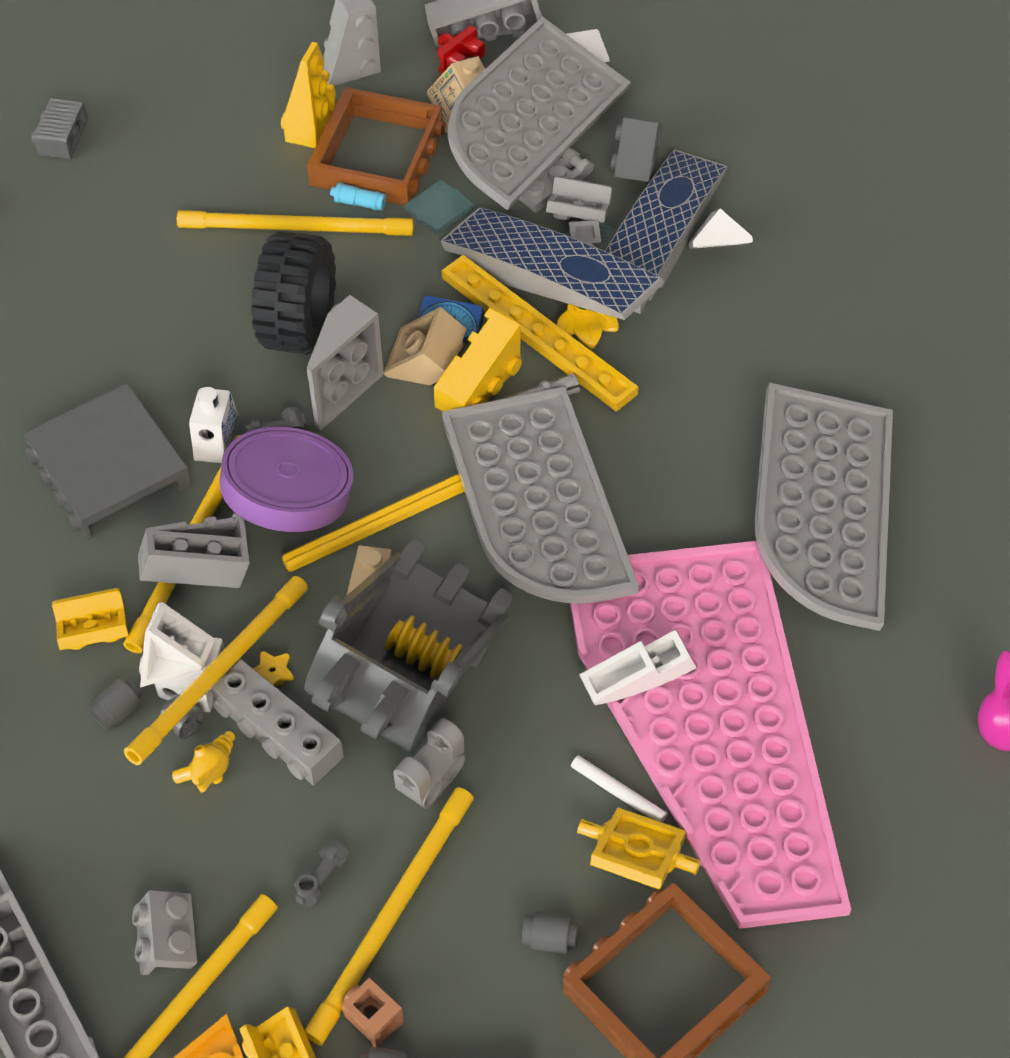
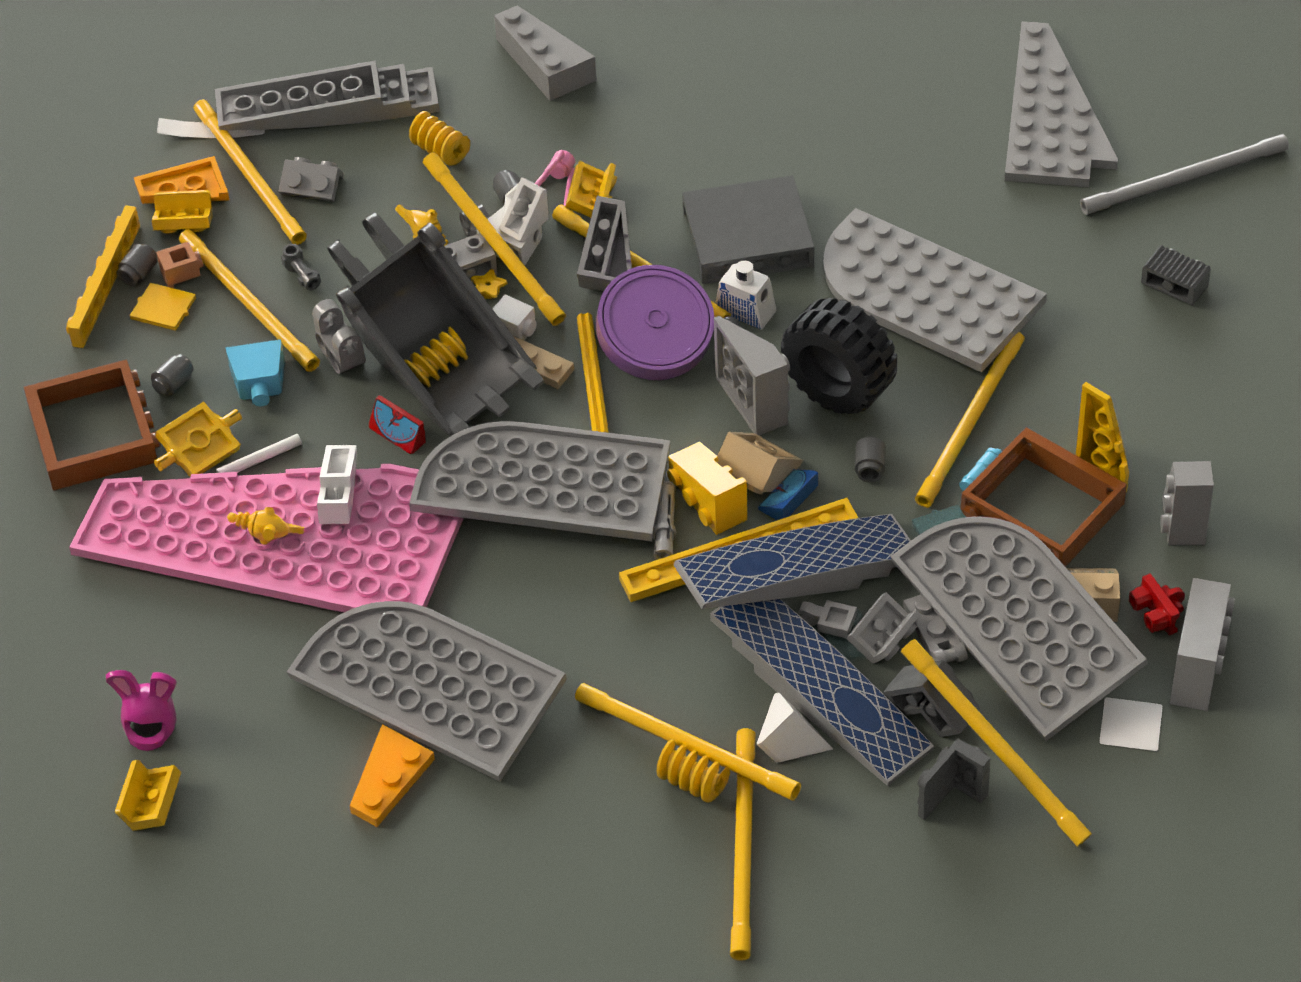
camera: 115 degrees right, 5 degrees down
(53, 808) = (437, 137): none -> yellow piece
(60, 668) = (559, 168): none -> bright pink plant
(143, 298) = (927, 290): none -> light grey plate
(310, 630) = (516, 316): none -> white brick
(384, 271) = (870, 459): none -> dark grey brick
(436, 1012) = (163, 306): none -> yellow piece
(504, 839) = (257, 370): none -> medium azure torso
(518, 669) = (397, 425): none -> slope
(642, 117) = (1065, 819): none -> yellow piece
(718, 113) = (958, 767): none -> dark grey bracket
(730, 711) = (264, 524): none -> yellow piece
(758, 258) = (741, 932): none -> yellow piece
(763, 371) = (771, 780): none -> yellow piece
(803, 278) = (690, 774): none -> yellow piece
(931, 500) = (388, 775): none -> light orange wing

